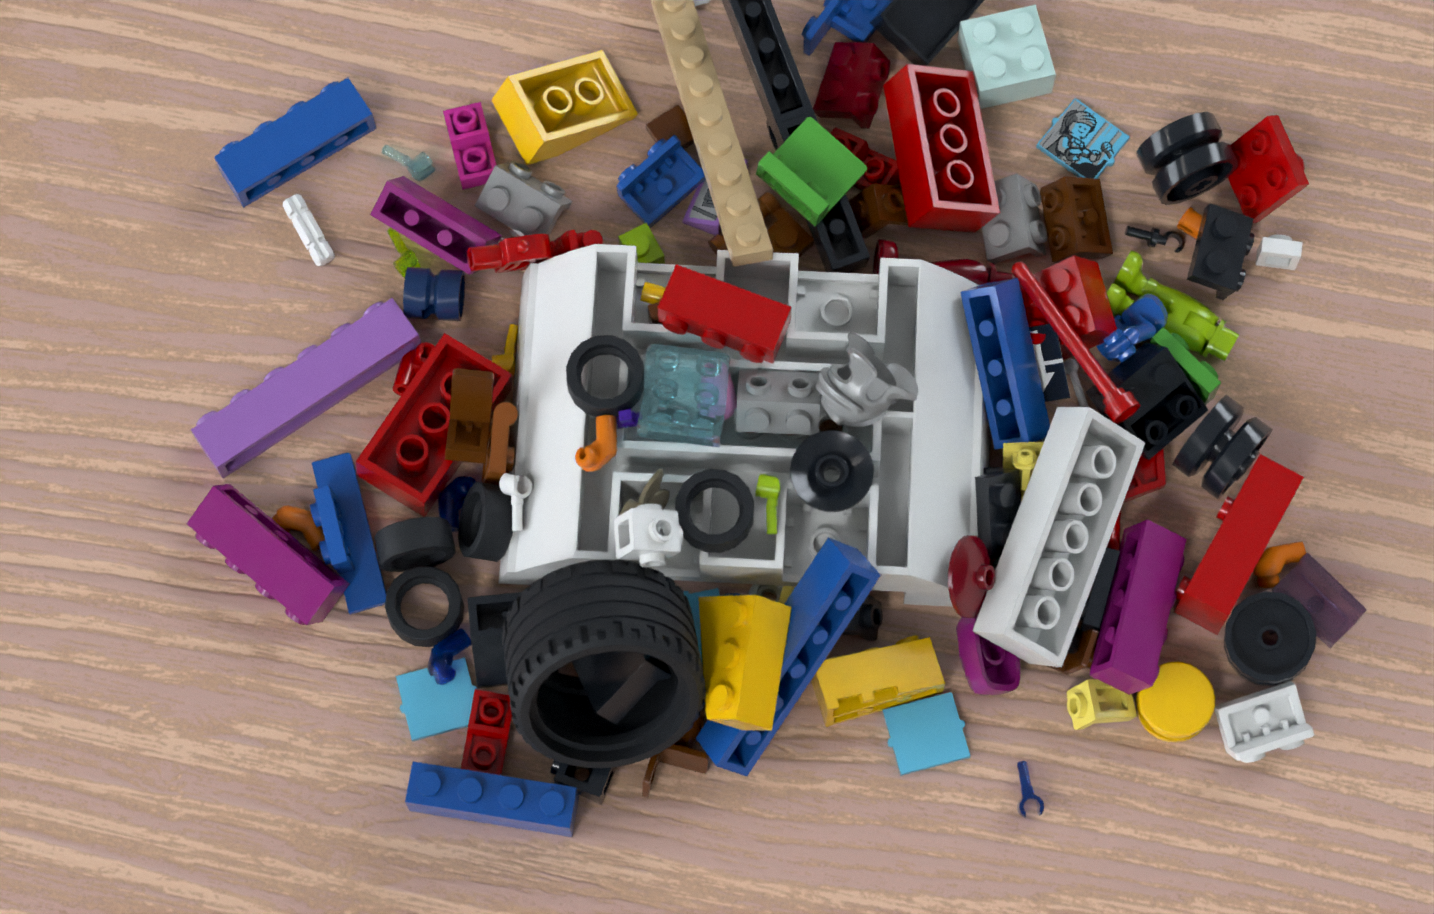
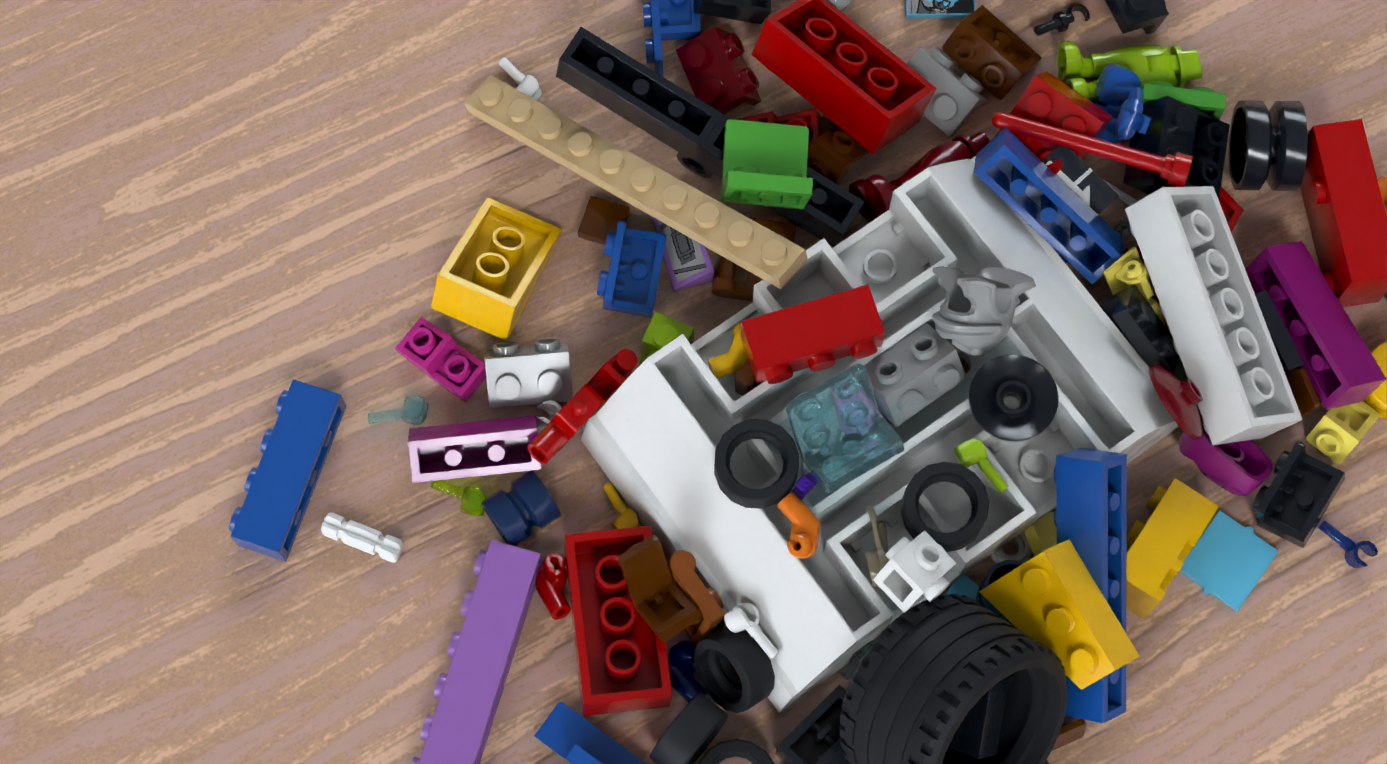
camera: 40 degrees left, 0 degrees up
(1017, 723) = (1297, 495): none -> black bracket

